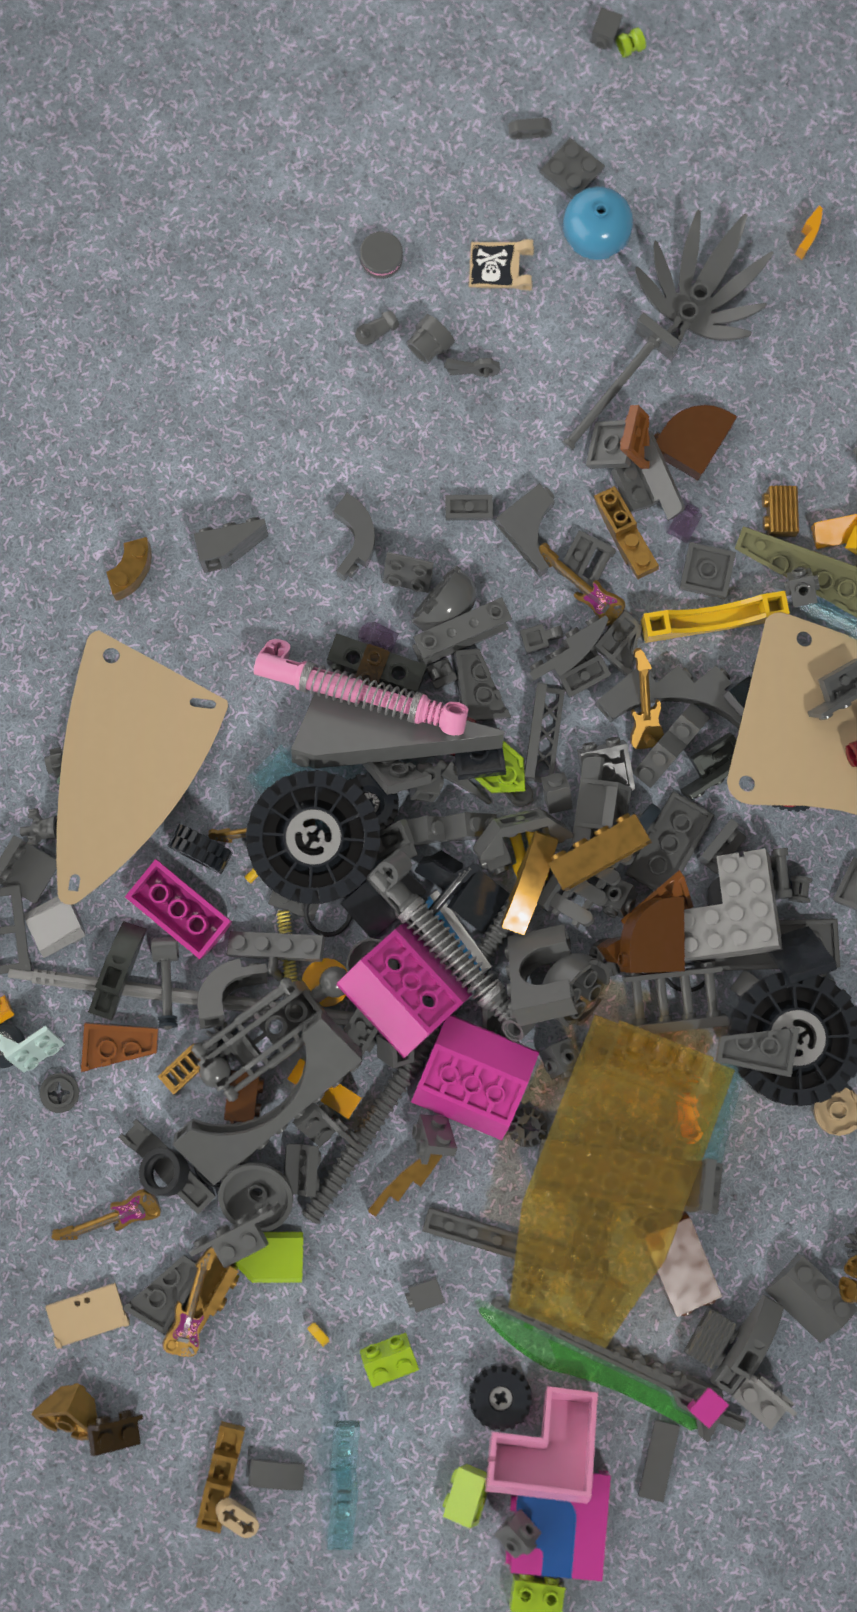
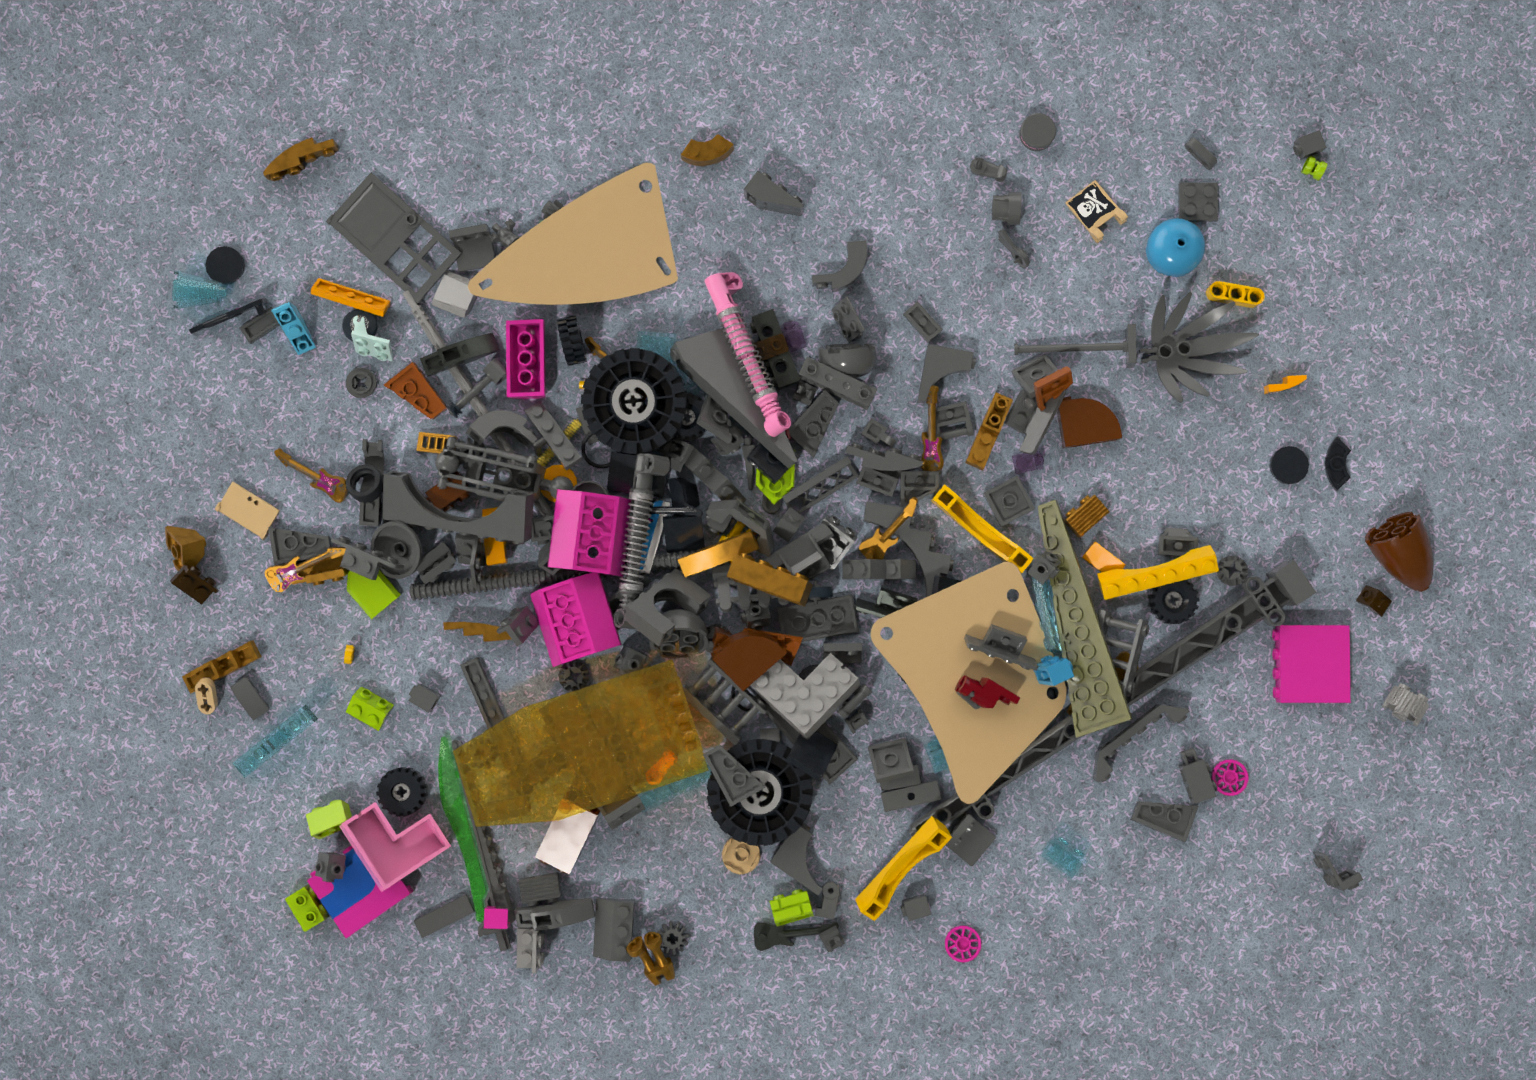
camera: 55 degrees right, 5 degrees up
(691, 198) = (1243, 294): none -> yellow beam

